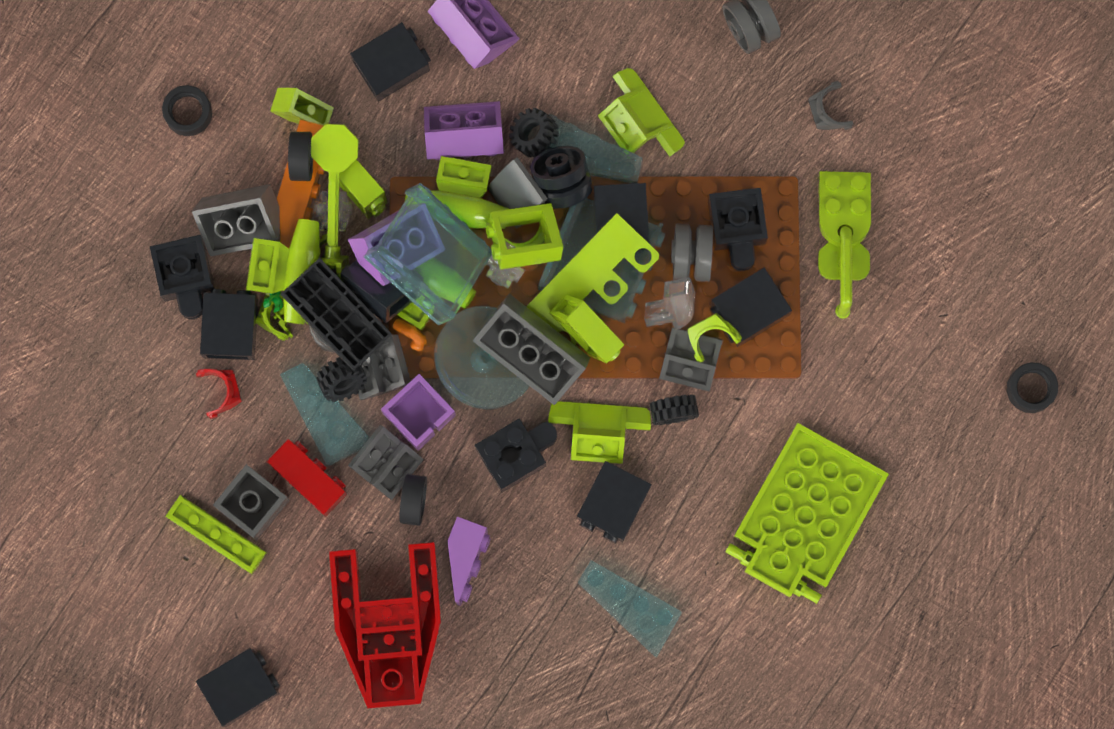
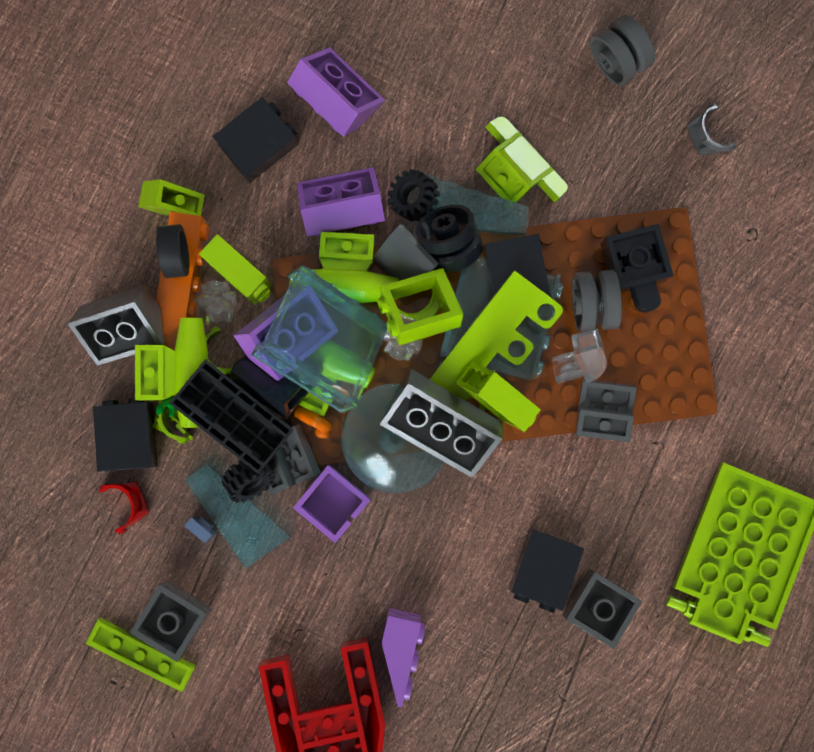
camera: 10 degrees left, 5 degrees up
(178, 93) = (36, 206): black tyre -> none
(183, 273) = (69, 387): black brick -> none
(290, 421) = (201, 528): none -> sand blue plate
(308, 476) = (226, 584): red brick -> none
(334, 150) = (207, 241): lime piece -> none
(385, 462) = (305, 557): dark grey slope -> none
(413, 499) = (339, 596): black tyre -> none
(515, 452) = (438, 531): black brick -> none
(599, 428) = (520, 493): lime plate -> none
(635, 609) = (584, 678): clear light blue wing -> none
(661, 543) = (601, 608): none -> dark grey brick
(674, 409) = (596, 466): black tyre -> none
(712, 322) = (627, 373): lime helmet -> none
(751, 306) = (660, 350): black brick -> none
(847, 208) = (737, 229): lime plate -> none

